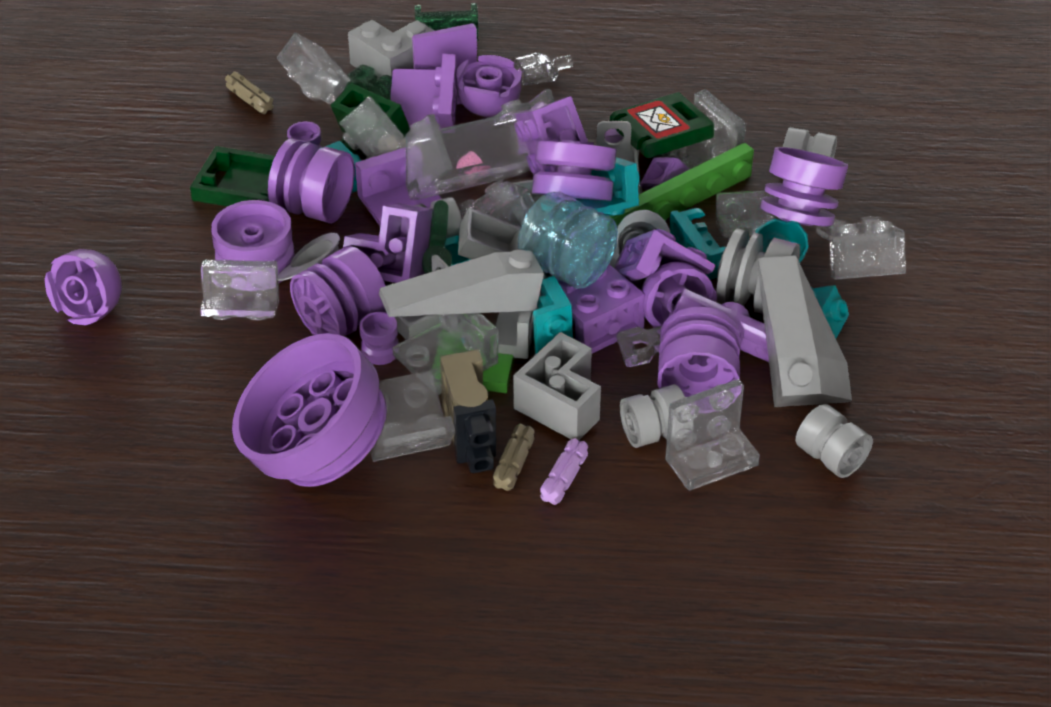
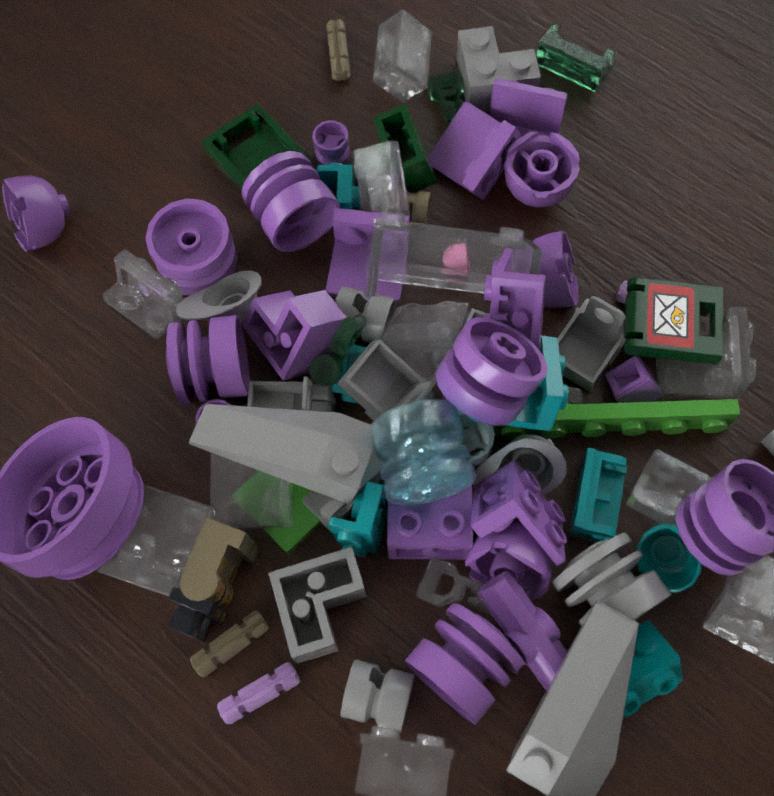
camera: 40 degrees right, 25 degrees up
(540, 68) = (622, 164): clear piece -> none

